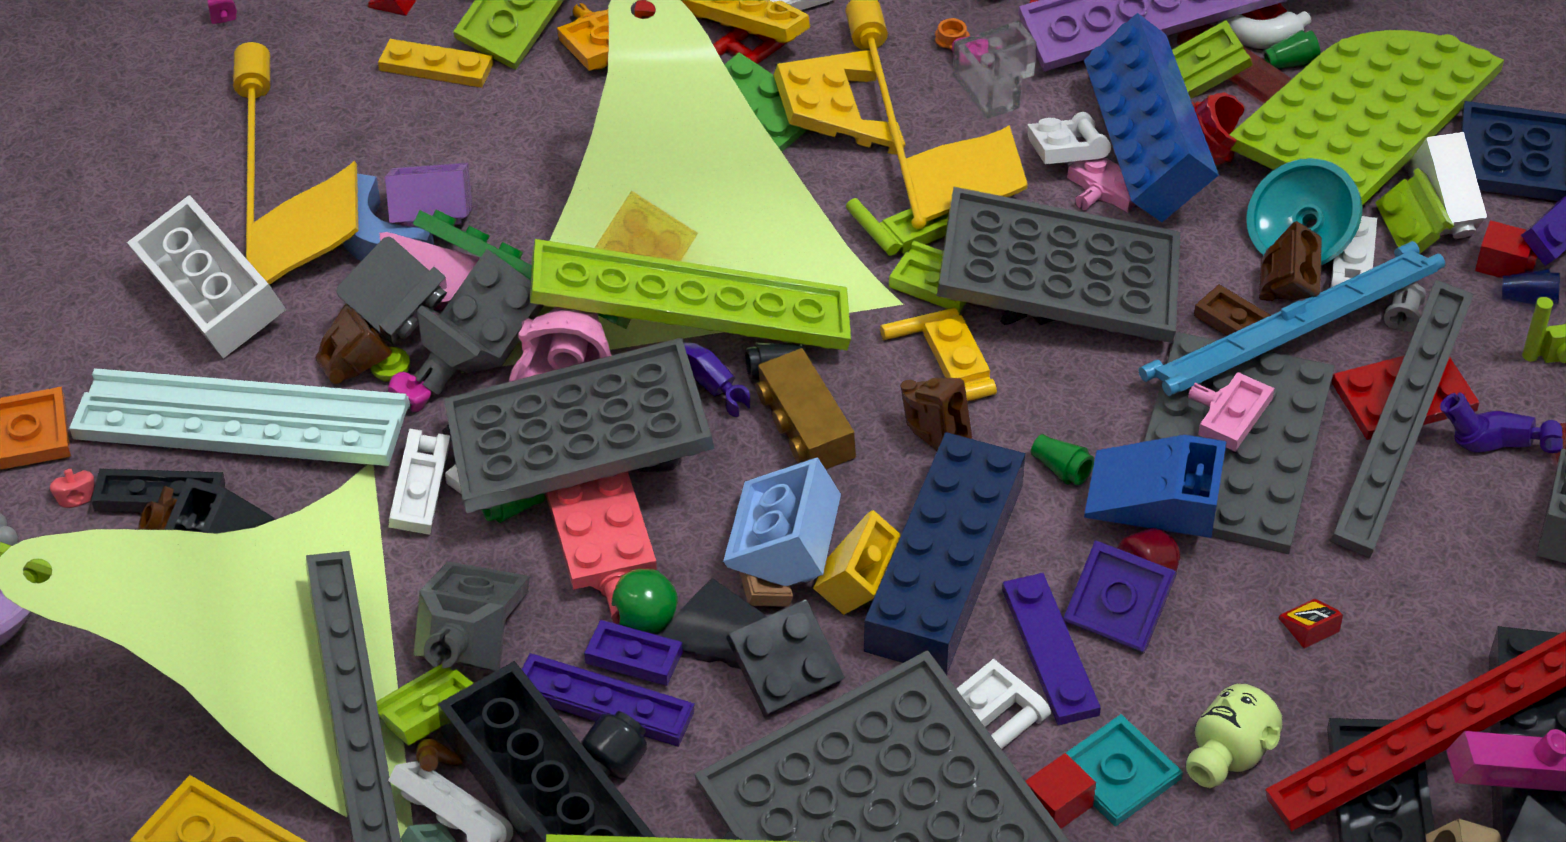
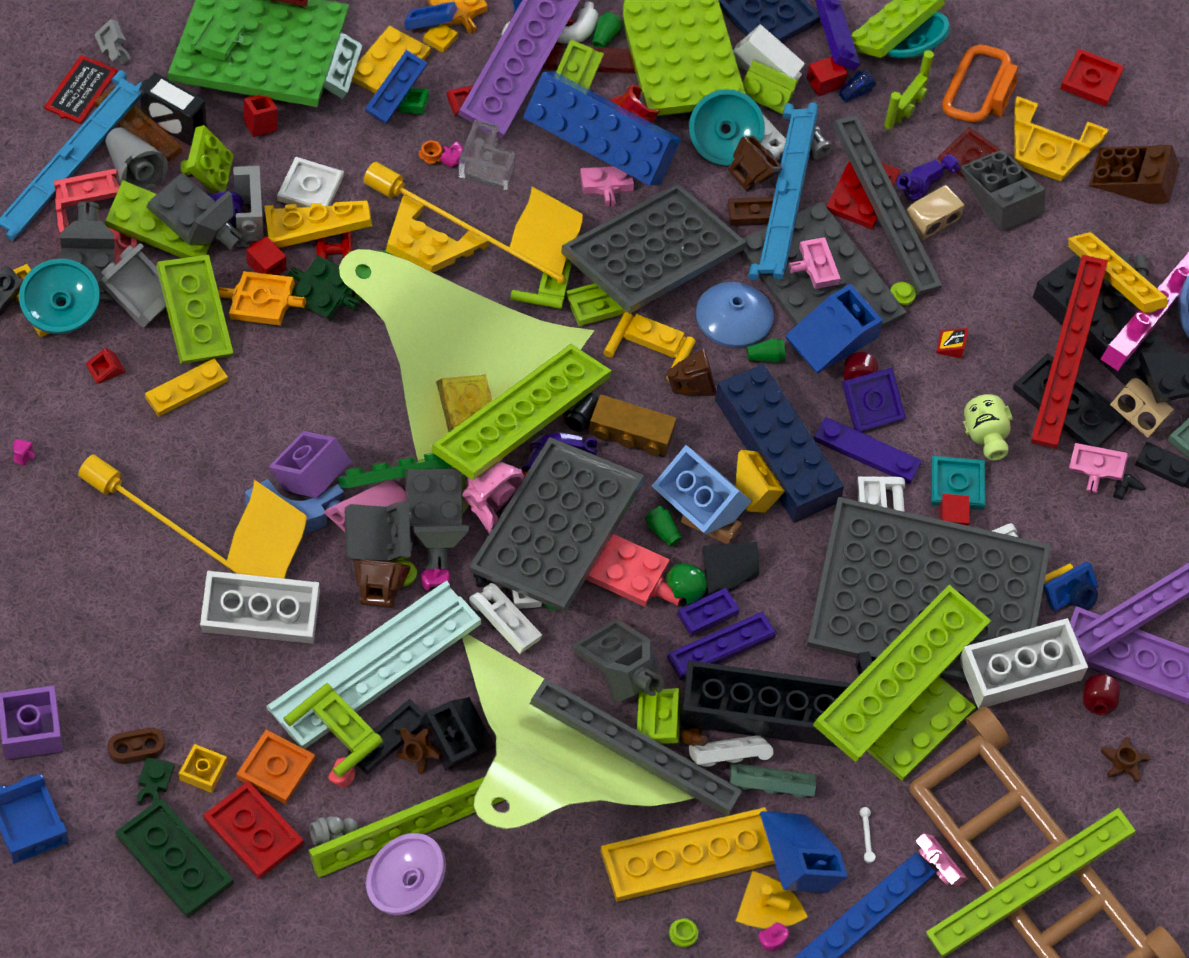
camera: 55 degrees left, 10 degrees up
(121, 434) = (342, 722): none -> lime plate
(616, 743) = (759, 656): black head -> none
(705, 529) = (663, 525): none -> green cone
(785, 657) = (777, 554): black plate -> none
(1057, 141) = (565, 178): white plate -> none
(1080, 401) = (730, 323): none -> medium blue dish
(1314, 525) = (904, 293): none -> lime plate
(1457, 456) = (932, 210): none -> tan piece

